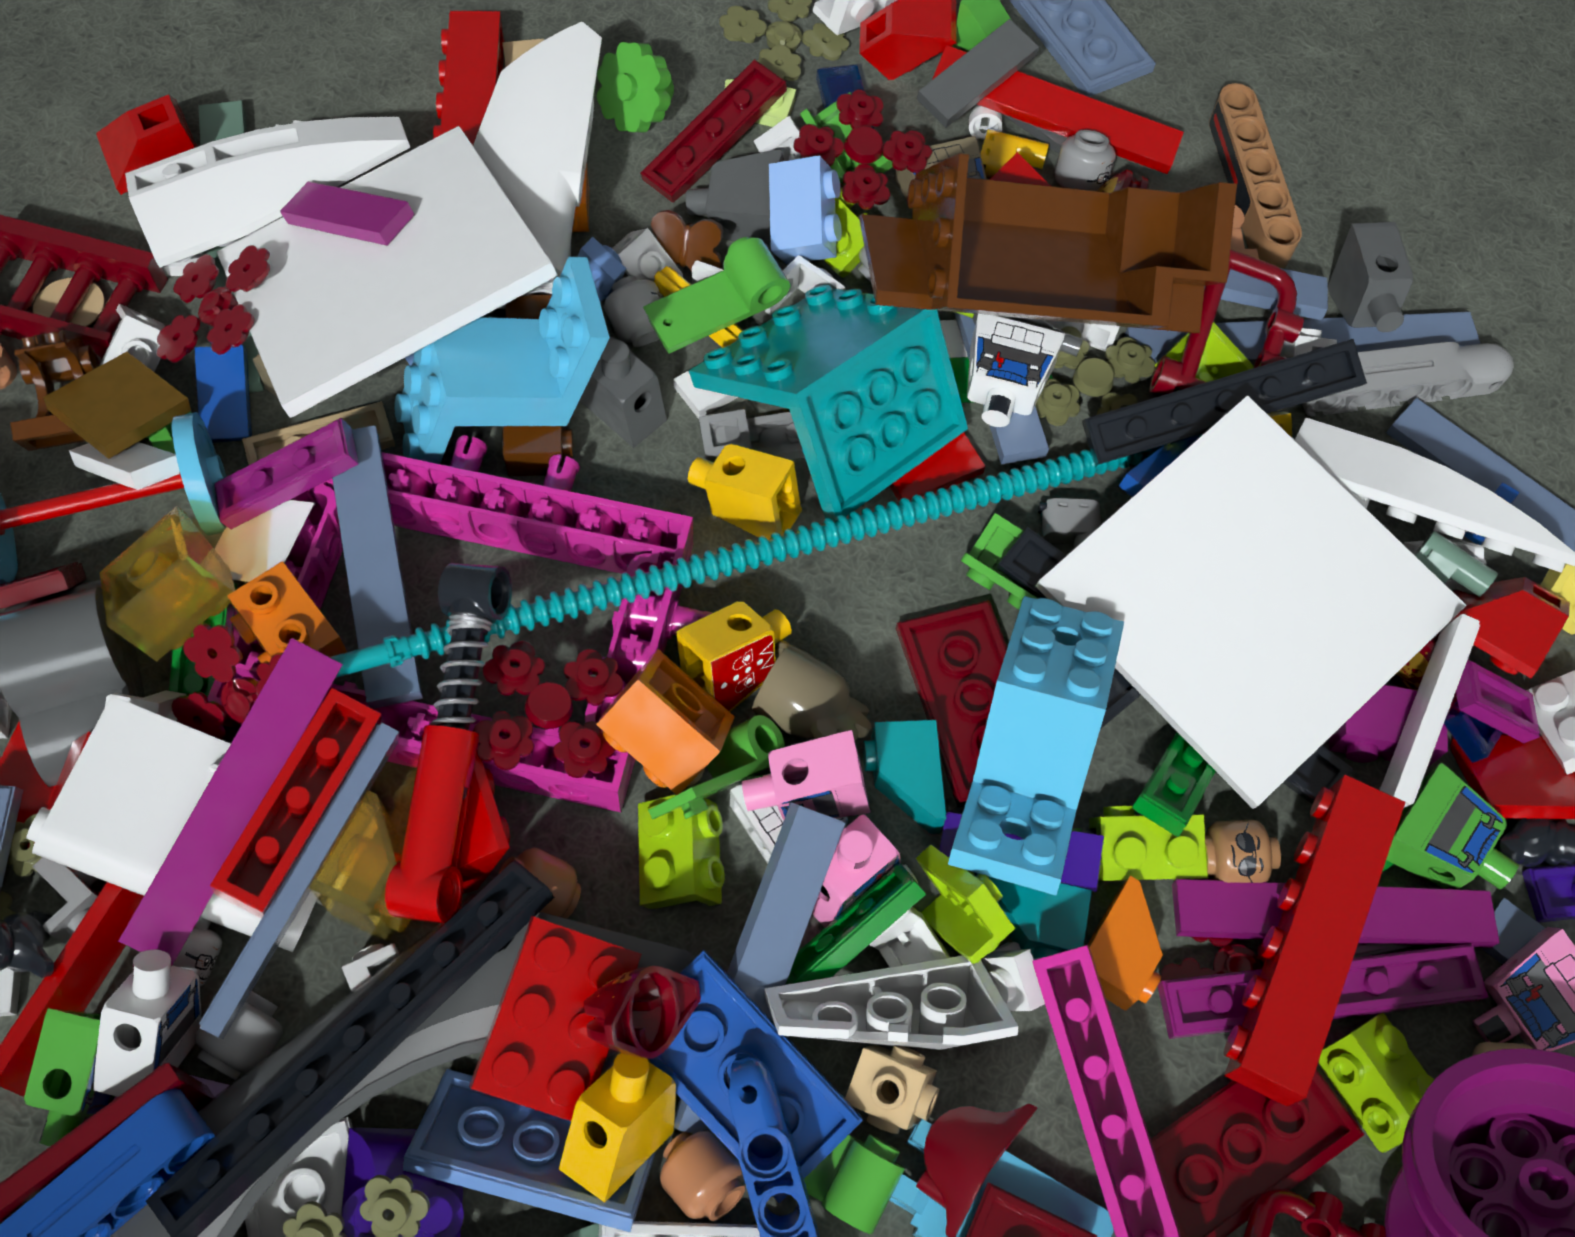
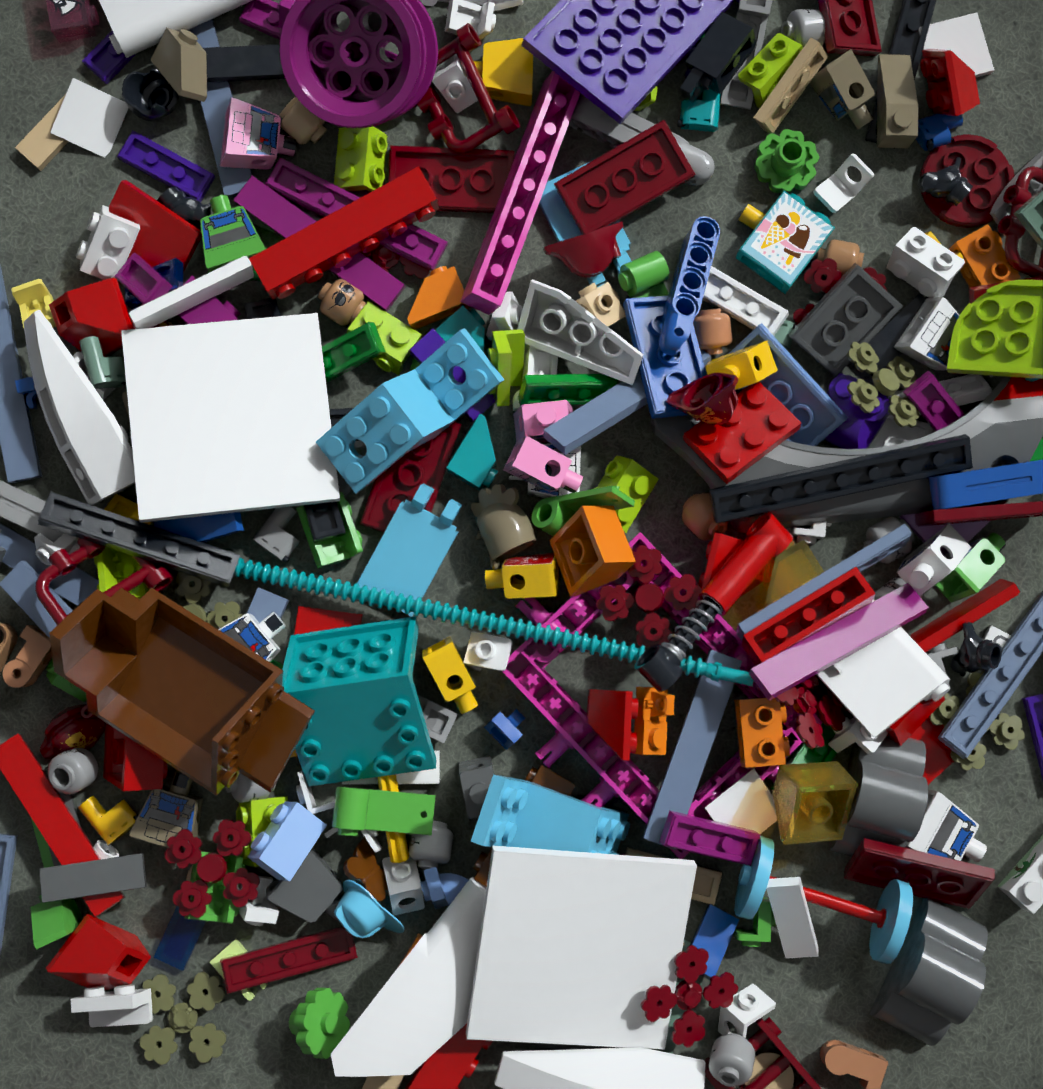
camera: 145 degrees left, 20 degrees up
(43, 362) = (810, 982): reddish brown tile -> none
(117, 404) = (779, 958): pearl gold tile -> none
(122, 274) = (732, 1060): none -> light grey head
(347, 213) = (577, 1006): magenta tile -> none
(440, 540) = (651, 720): none -> orange hinge
(500, 517) = (610, 717): none -> red slope
(634, 476) = (505, 729): none -> blue tile
(663, 190) = (362, 913): none -> medium azure piece
(716, 527) = (488, 652): none -> white bracket
(902, 603) = (412, 547): none -> medium azure tile

